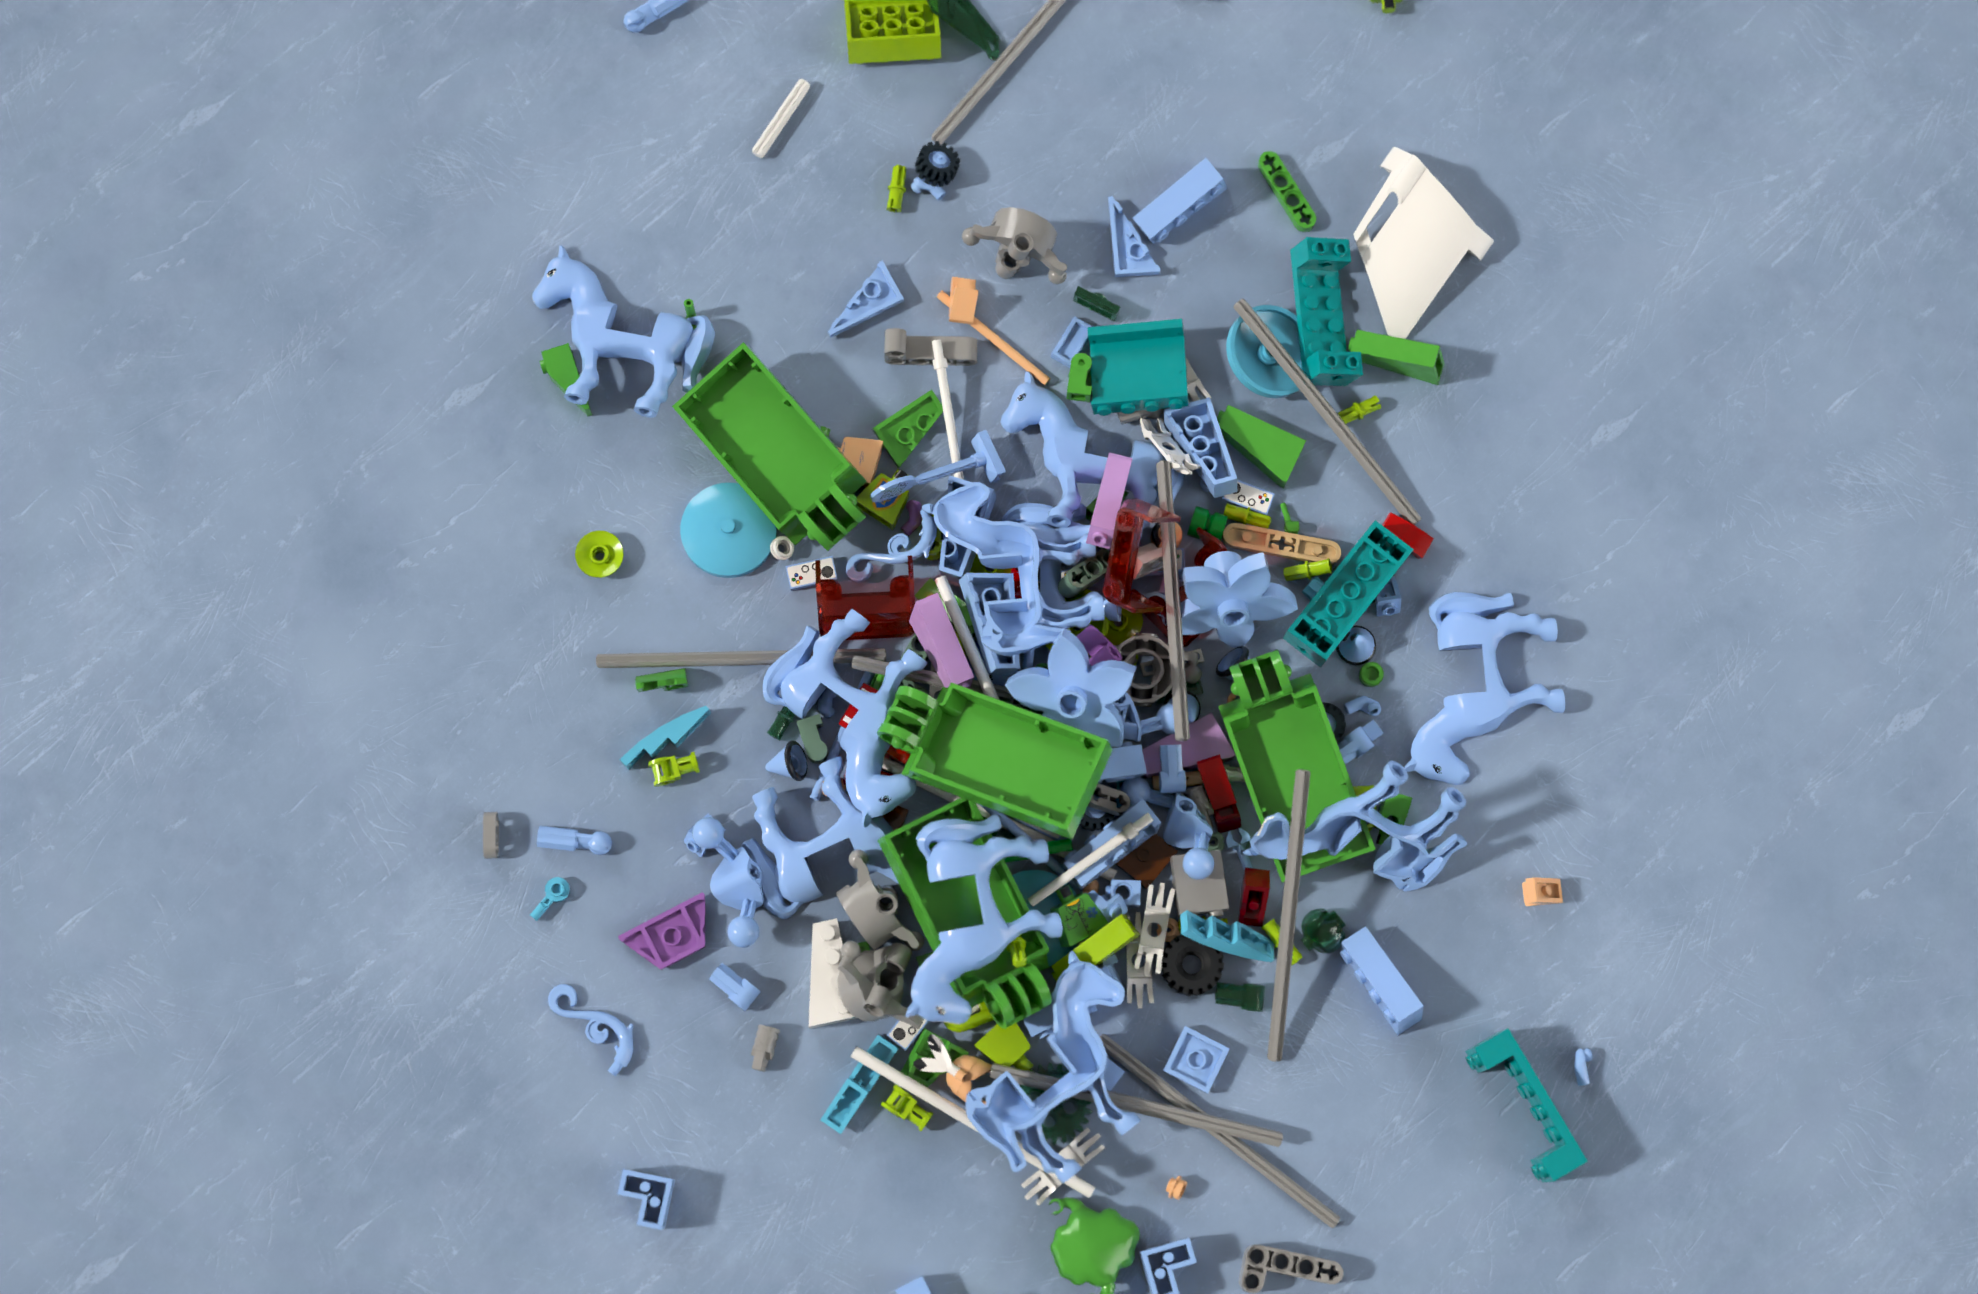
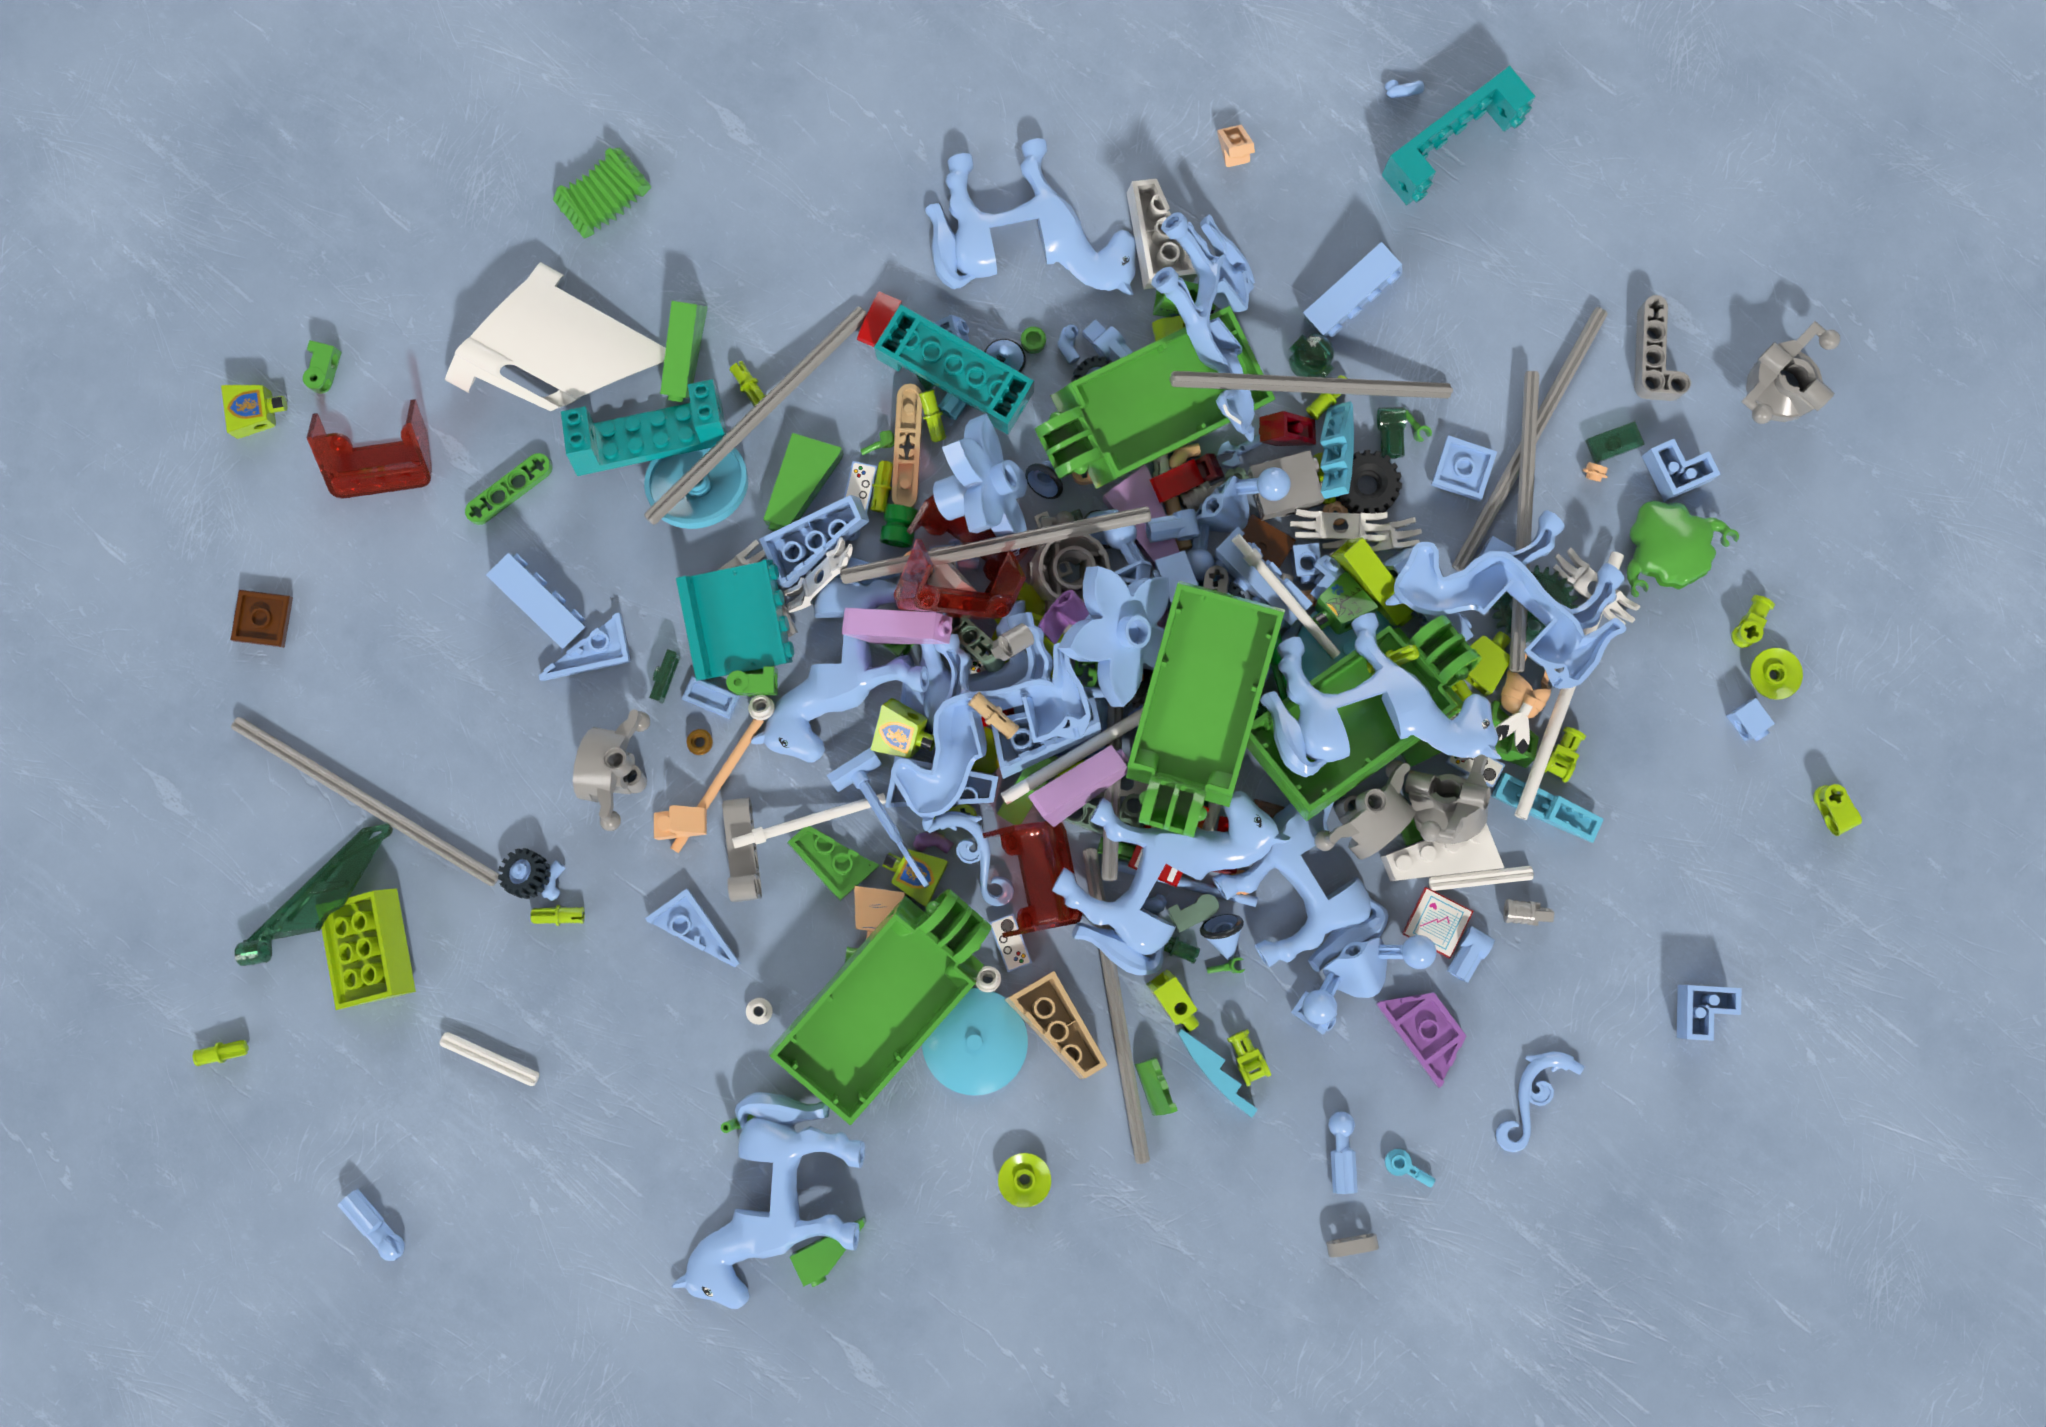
camera: 90 degrees left, 5 degrees up
(733, 600) = (1056, 1021): none -> tan wedge
(745, 705) = (1169, 993): none -> lime torso
(758, 762) = (1225, 967): none -> bright green hand
(768, 962) = (1438, 920): none -> white tile
(785, 354) = (767, 1014): none -> white plate
(802, 1013) = (1481, 878): none -> white axle
(1014, 572) = (993, 715): none -> tan pin
(1016, 497) = (901, 731): none -> lime torso
(1033, 320) = (691, 742): none -> pearl gold plate
(1060, 379) = (758, 702): none -> white plate
(1078, 596) = (1012, 642): none -> light grey piece
(1203, 1212) = (1614, 442): none -> clear green plate
(1243, 795) = (1183, 453): none -> light nougat arm
(1243, 1022) = (1417, 427): none -> bright green hand
(1320, 77) = (373, 468): none -> clear red windscreen
(1418, 45) = (322, 367): none -> bright green leg
(1479, 797) = (1154, 248): none -> white wedge
(1555, 304) = (601, 193): none -> bright green piece

